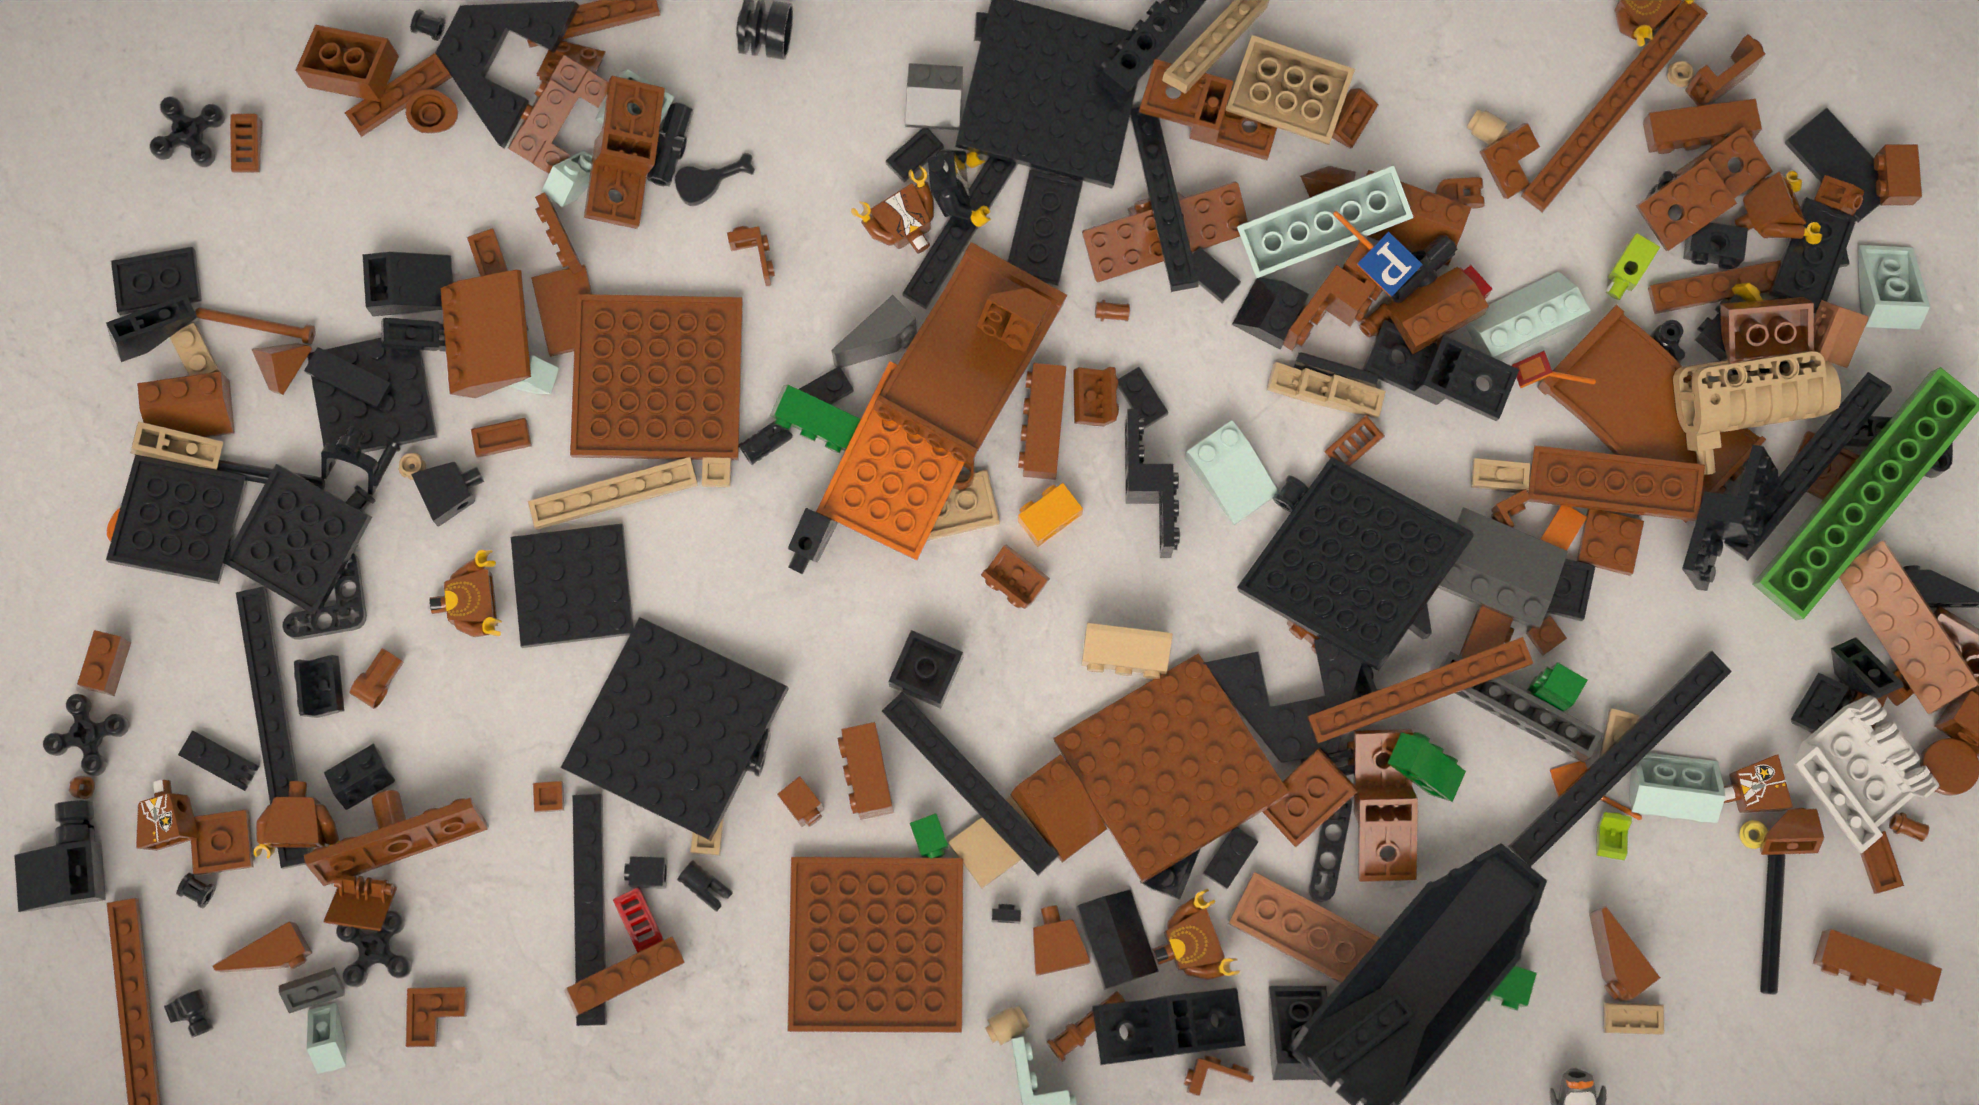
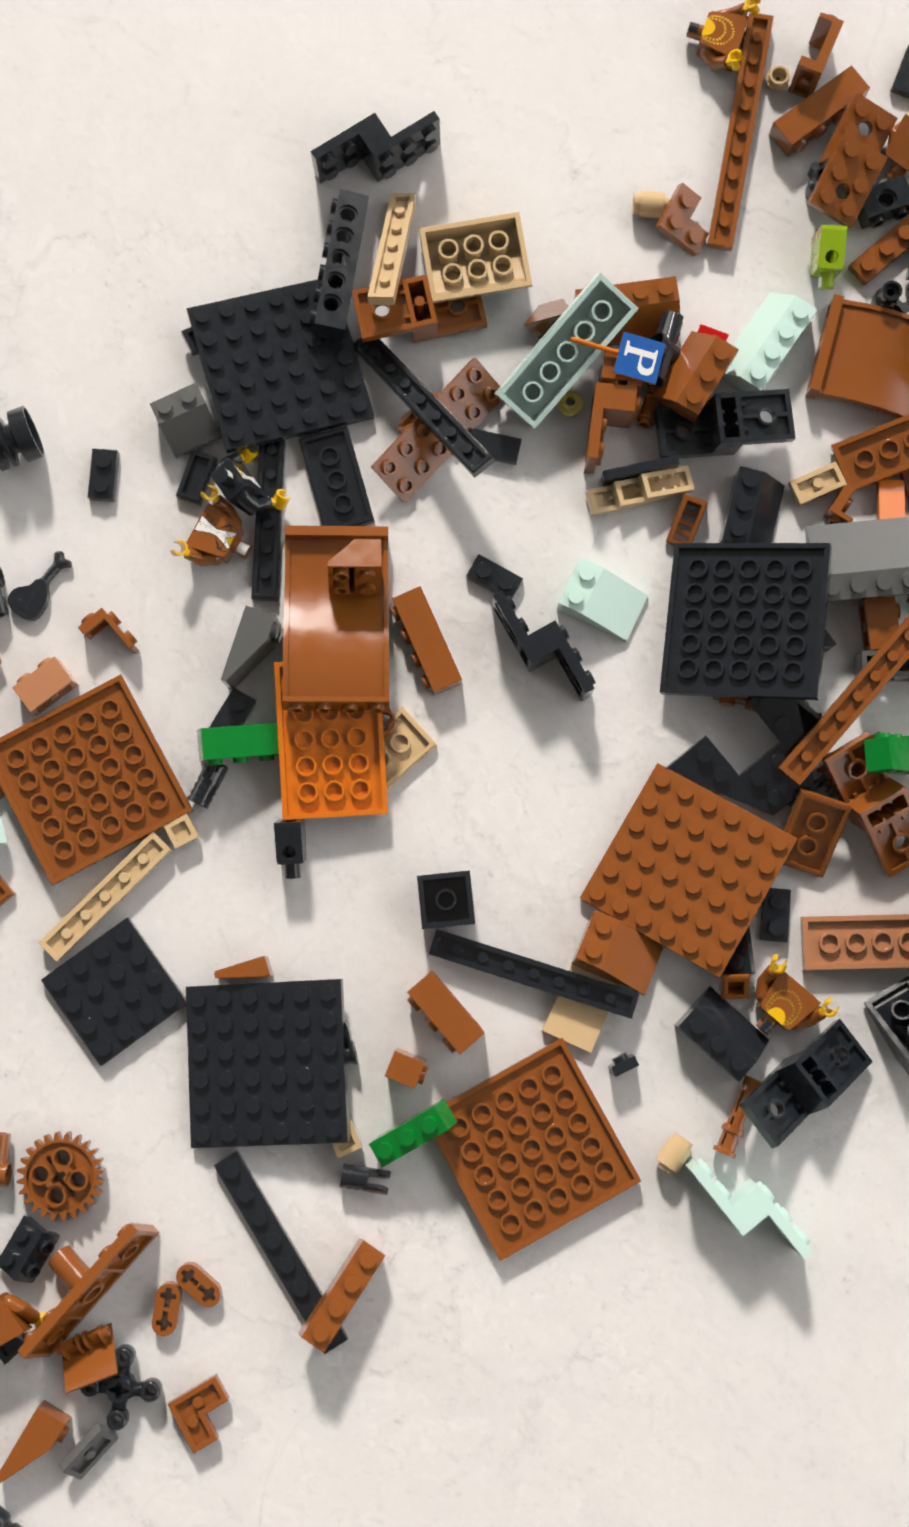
camera: 25 degrees left, 5 degrees up
(326, 1038) = (123, 1484): light aqua slope -> none
(402, 729) = (41, 1191): none -> dark orange gear
(450, 897) = (173, 1308): none -> dark orange beam
(470, 598) = (36, 1050): dark orange torso -> none
(491, 899) = (194, 1289): none -> dark orange beam
(548, 796) = (194, 1178): dark orange plate -> none
(628, 897) = (321, 1245): red slope -> none
(646, 872) = (311, 1195): black brick -> none
(666, 269) = (44, 685): none -> nougat brick
(709, 633) = (253, 968): none -> dark orange slope
(773, 865) = (413, 1133): none -> green brick
(829, 106) = (103, 475): none -> black plate
(929, 836) = (525, 1035): green brick -> none
(1015, 577) = (475, 783): dark orange bracket -> none
(1049, 514) = (474, 715): light orange brick -> none
(1057, 944) = (677, 1065): dark orange torso -> none
(1095, 396) = (457, 597): dark orange bracket -> none
(1112, 311) = (431, 520): dark orange pin -> none
(1126, 650) = (600, 794): tan slope -> none
(1153, 900) = (734, 986): none -> dark orange slope
(1195, 1077) = (849, 1111): dark orange bracket -> none
(1270, 310) = (559, 449): black slope -> none
(1290, 493) = (658, 591): black bush -> none
(1306, 281) = (570, 410): none -> light yellow plate
(1335, 848) = (854, 859): black beam -> none
(1354, 116) = (538, 253): dark orange slope -> none
(1425, 464) = (752, 507): none -> black slope
(1453, 189) = (651, 270): dark orange plate -> none
(1538, 367) = (799, 380): orange piece -> none

